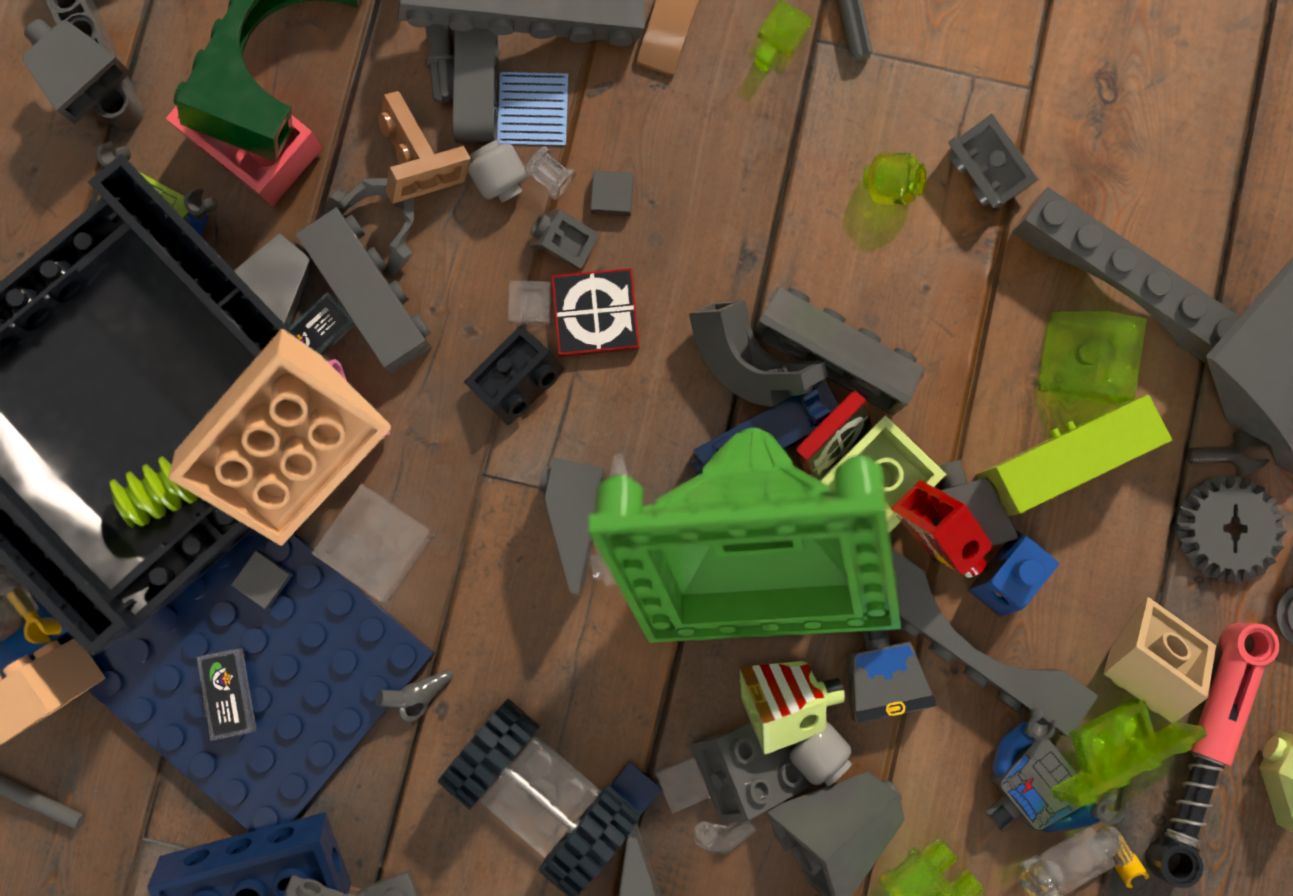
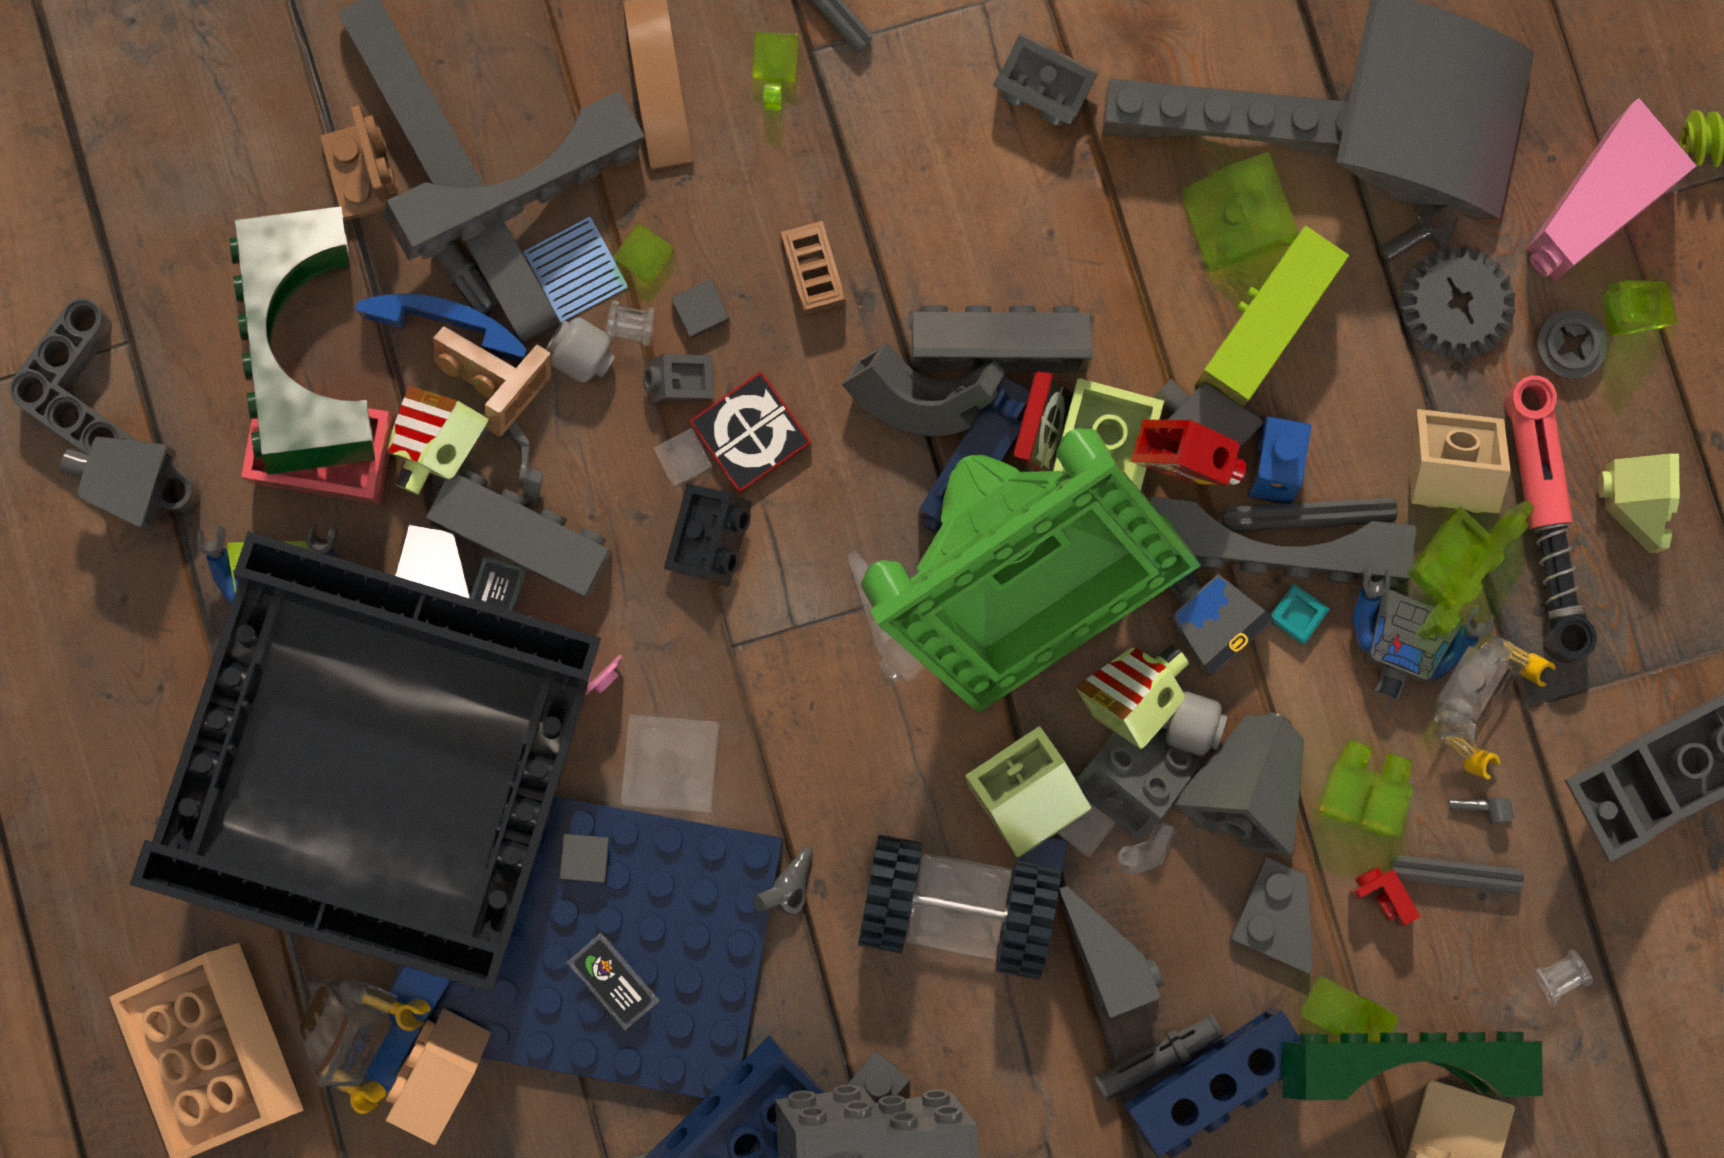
camera: 30 degrees left, 0 degrees up
(149, 495) = (450, 819): lime piece -> none
(278, 440) = (543, 710): light nougat slope -> none
(336, 173) = (432, 437): none -> torso
(374, 59) = (394, 309): none -> blue slope
(569, 501) = (839, 629): dark grey slope -> none
(592, 125) = (644, 253): none -> clear neon green plate
(651, 733) = (1028, 792): none -> yellowish green slope
(713, 240) = (825, 300): none -> medium nougat slope
(895, 178) = (962, 146): clear neon green head -> none
(957, 710) = (1298, 614): none -> teal tile
(1012, 634) = (1309, 514): none -> dark grey axle

